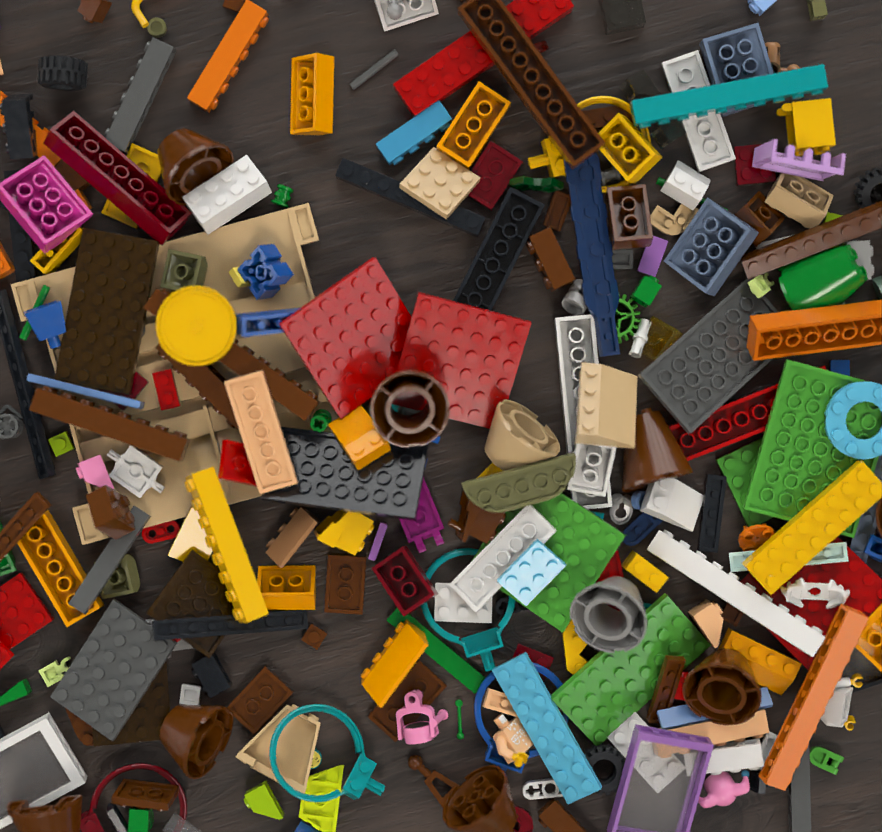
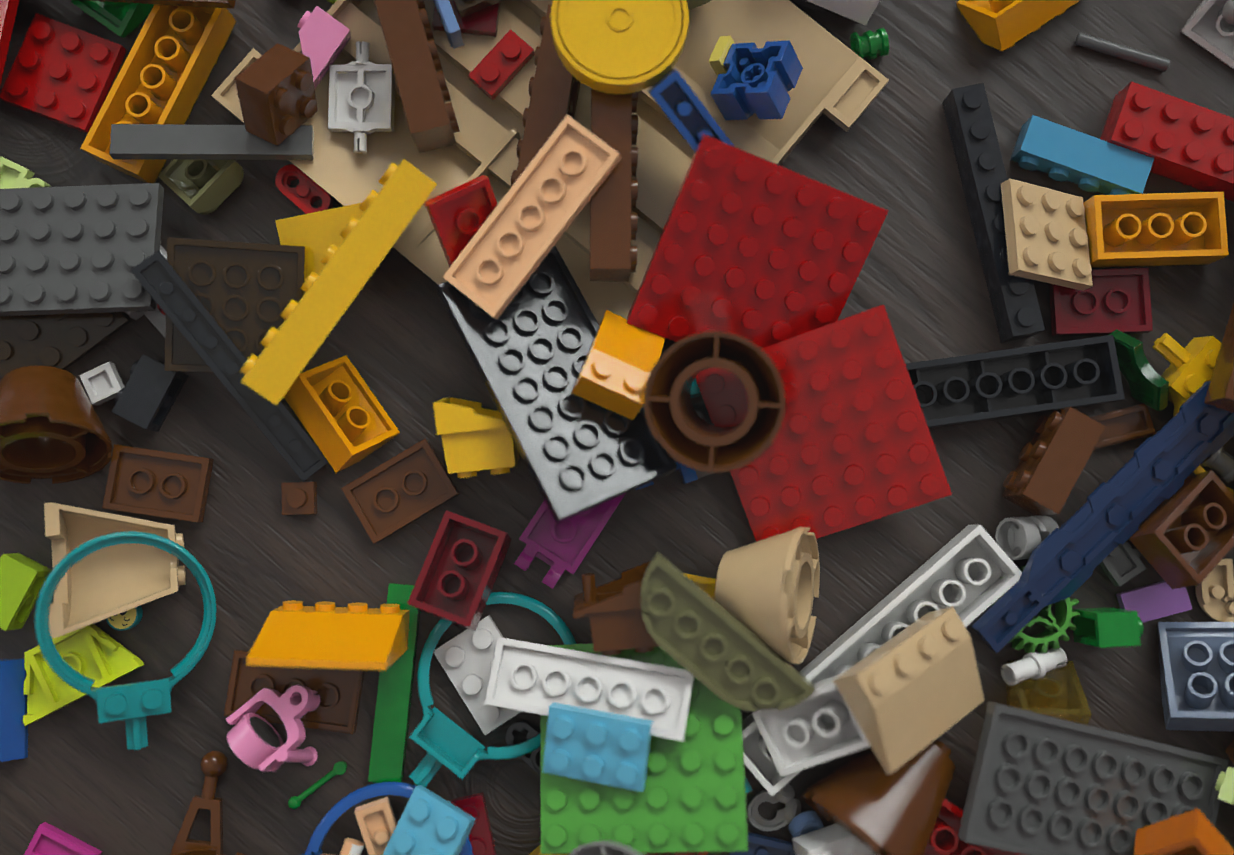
camera: 55 degrees right, 5 degrees down
(291, 536) = (416, 371): medium nougat slope -> none
(320, 415) = (611, 291): green bush -> none
(378, 540) = (491, 494): medium lavender tile -> none

